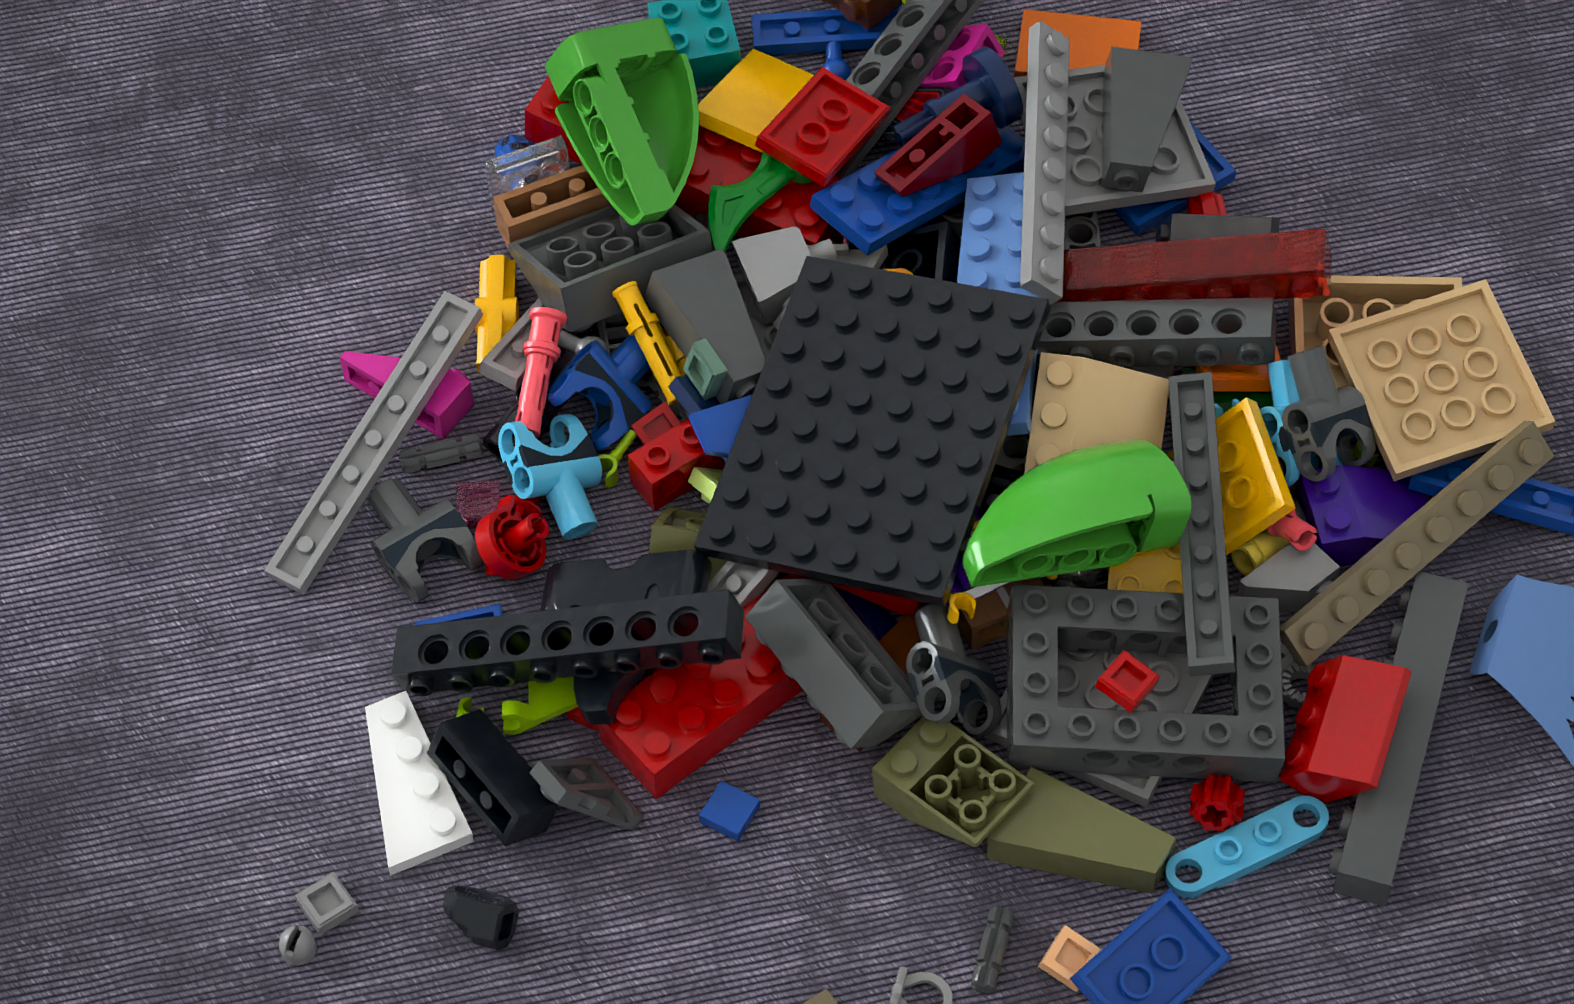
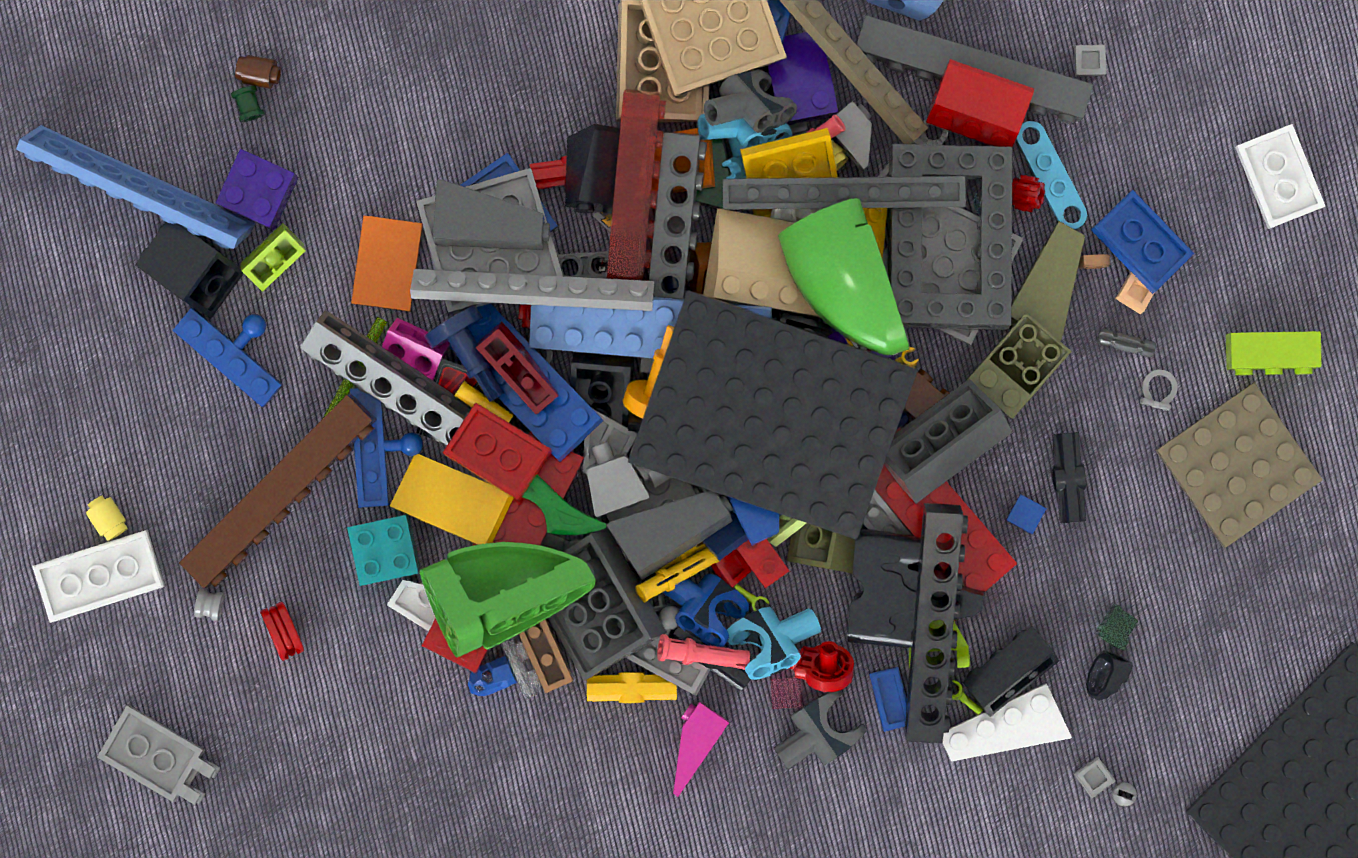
camera: 90 degrees left, 30 degrees up
(373, 443) = (751, 766): light grey plate -> none
(440, 452) = (744, 721): dark grey axle -> none
(552, 929) = (1116, 627): none -> clear green panel
(586, 789) = (1021, 609): dark grey wing -> none
(705, 369) = (713, 534): sand green tile -> none
(784, 864) = (1069, 477): none -> black piece
(882, 138) = (471, 395): none -> yellow pin
(944, 671) = (949, 366): dark grey connector -> none
(1117, 898) = (1094, 261): none -> medium nougat tile
(1127, 681) = (967, 247): red tile -> none
(1429, 896) = (1090, 60): none -> light grey plate

